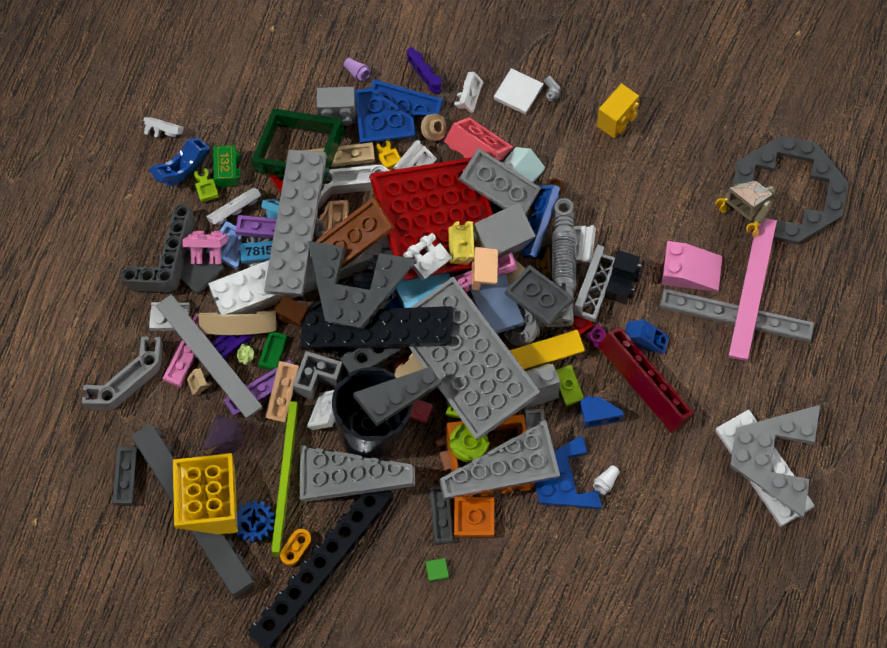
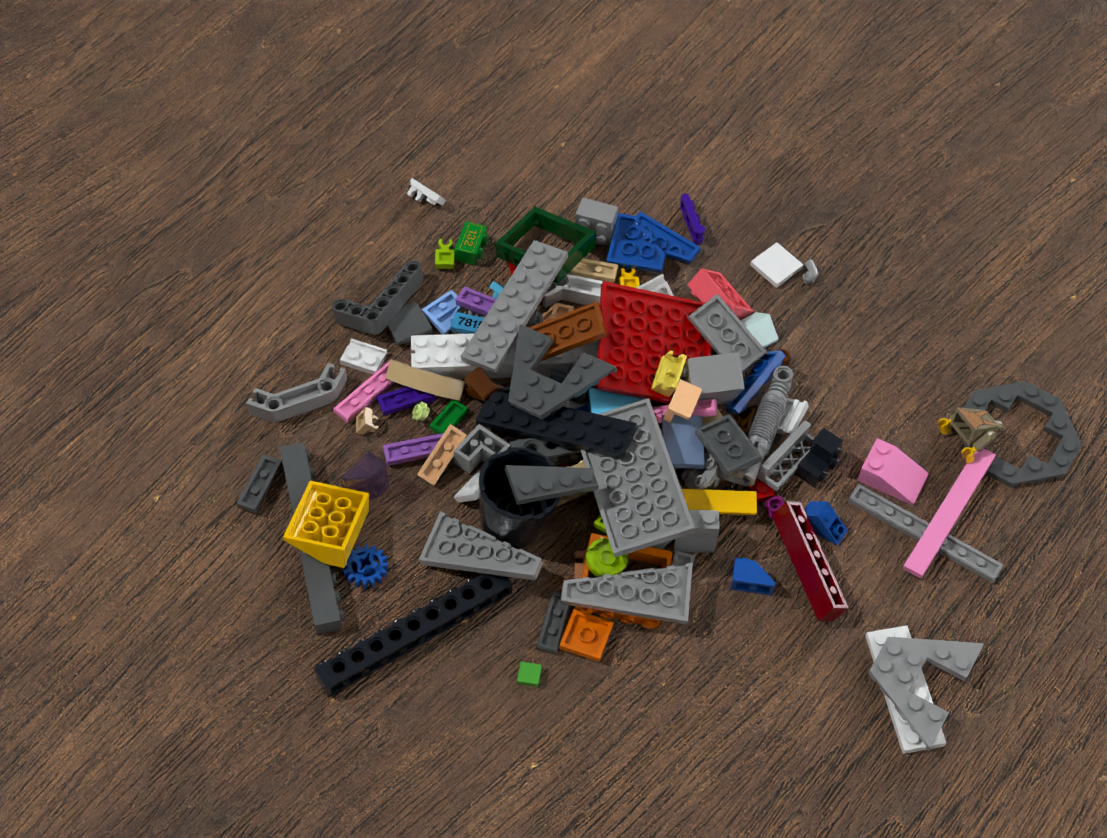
camera: 15 degrees right, 10 degrees down
(182, 164) = (431, 230): blue arch -> none
(209, 357) = (385, 403): light grey tile -> none
(212, 241) = (415, 295): bright pink plate -> none
(234, 207) = (464, 281): white tile -> none
(284, 479) = (411, 538): lime tile -> none
(295, 548) = (395, 604): light orange plate -> none
(357, 69) = (629, 200): lavender cone -> none
(421, 411) = (571, 519): coral plate -> none
(432, 260) = (633, 379): white plate -> none
(433, 127) = (682, 269): tan plate -> none
(470, 93) = (729, 250): white plate -> none
(562, 490) = (685, 638): blue wing -> none
(569, 386) = (728, 543): lime plate -> none
(606, 480) = (734, 645): white cone -> none
(618, 111) = (868, 307): yellow brick -> none

